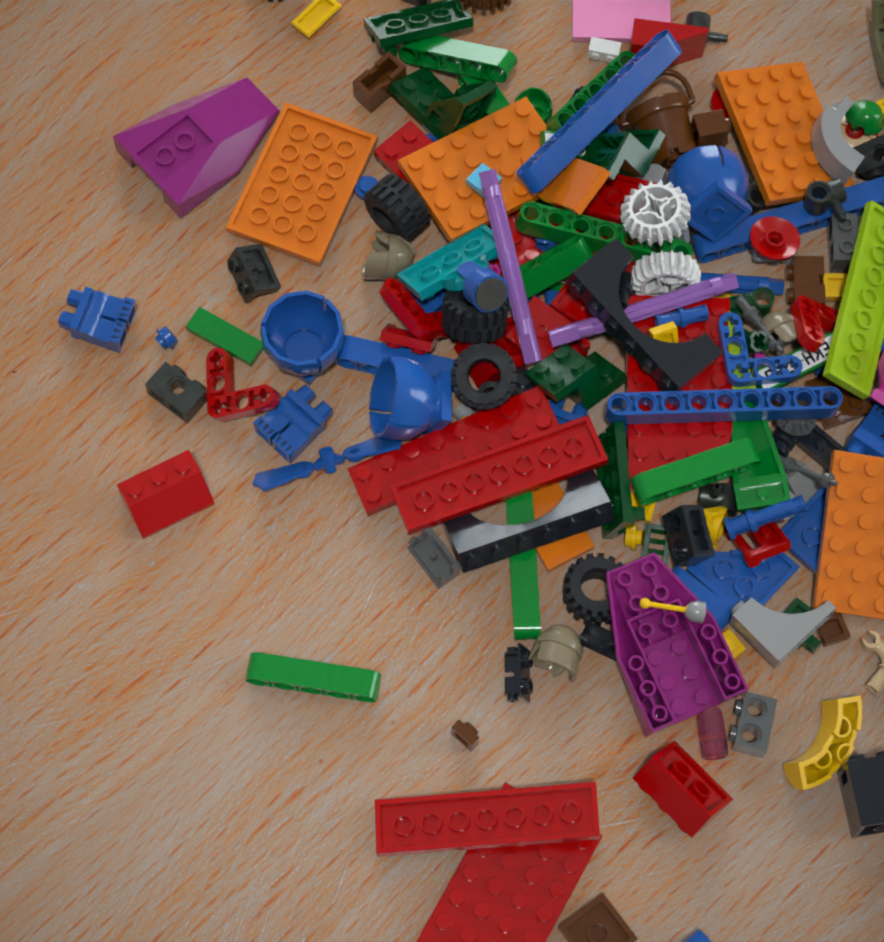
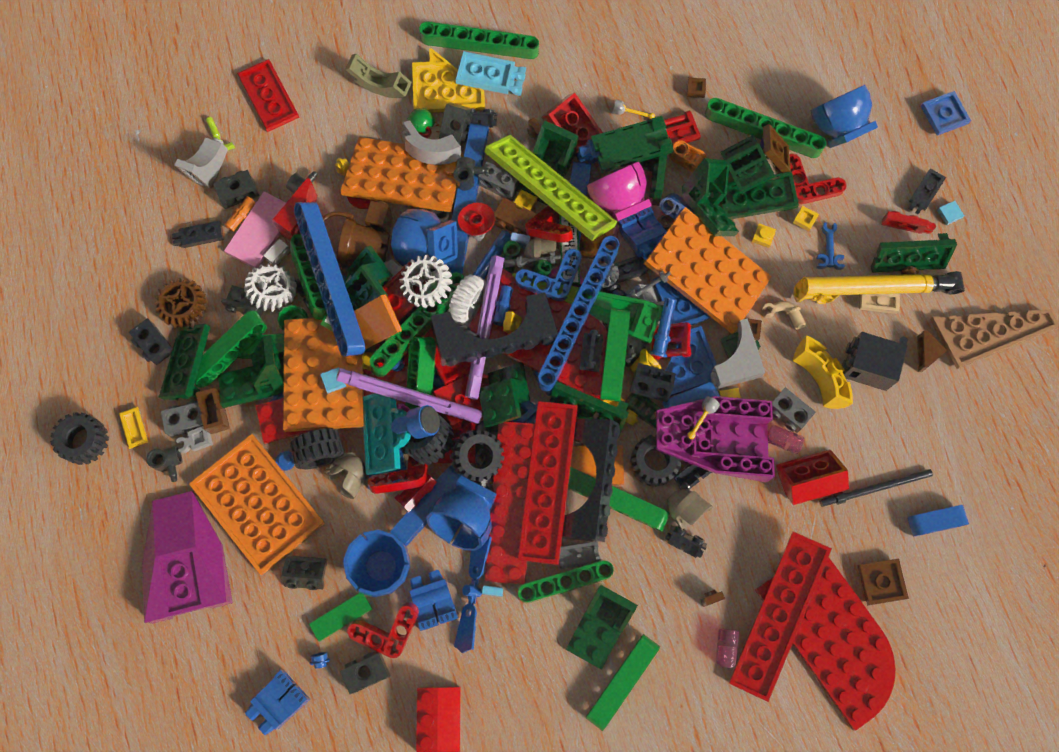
camera: 60 degrees left, 5 degrees up
(304, 69) = (171, 458): none -> pearl dark grey piece
(337, 85) = (196, 440): none -> light grey plate
(340, 482) = (492, 591): none -> medium azure tile
(350, 62) = (185, 422): none -> dark grey brick
(363, 622) = (601, 626): none -> dark green bracket
(398, 569) = (576, 582): none -> green beam
(416, 779) = (727, 648): none -> clear pink arm
(527, 47) = (238, 301): none -> pearl dark grey bracket
(550, 68) = (273, 293): none -> white gear
(676, 836) = (840, 498): none -> black bar
(684, 444) = (591, 351): none -> black hinge
(754, 61) = (342, 166): none -> yellow plate
(781, 301) = (521, 239): none -> light blue tile

